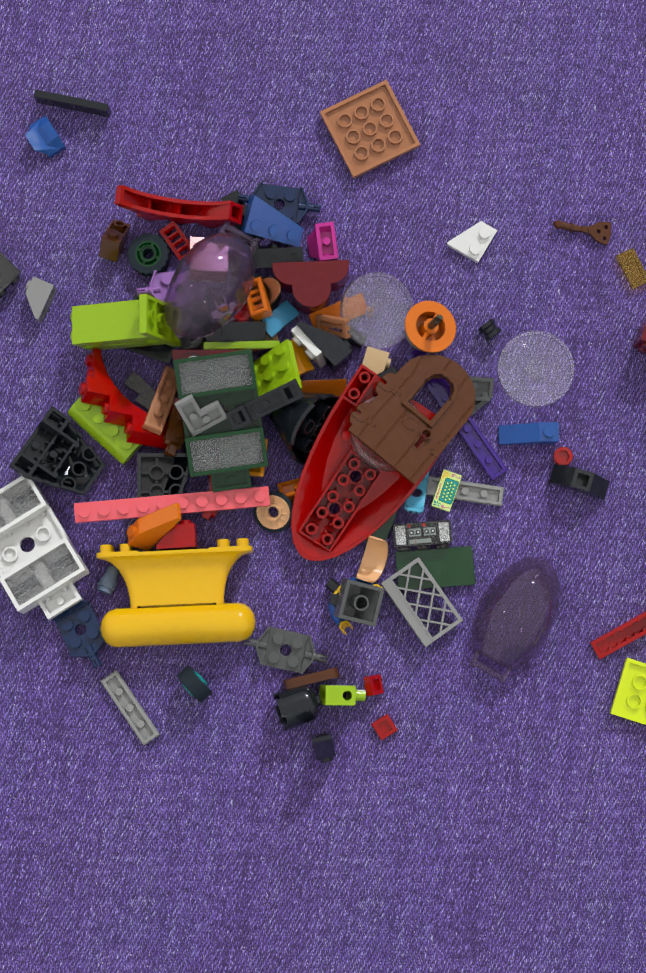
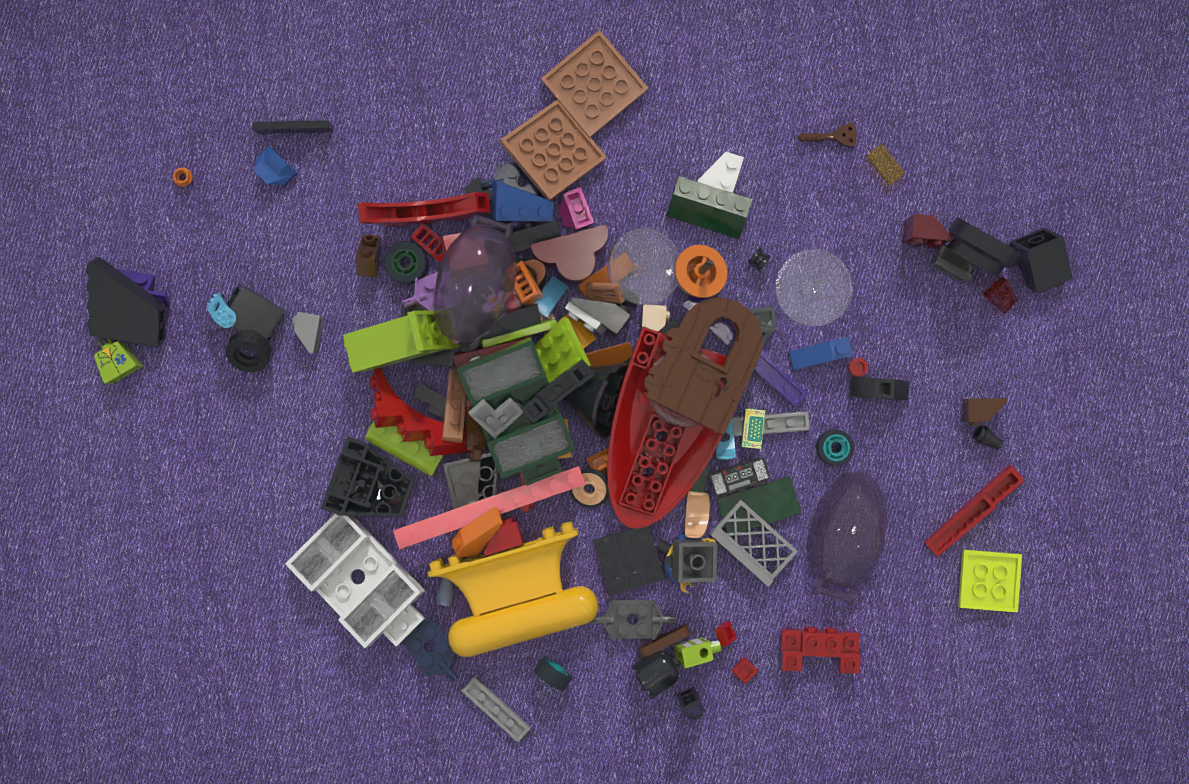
camera: 10 degrees left, 5 degrees up
(295, 590) = (628, 559): none -> black plate
(315, 181) = (553, 150): none -> nougat plate
(452, 269) = (709, 207): none -> dark green slope
(466, 717) = (820, 643): none -> red bracket
(533, 528) = (845, 443): none -> wheel

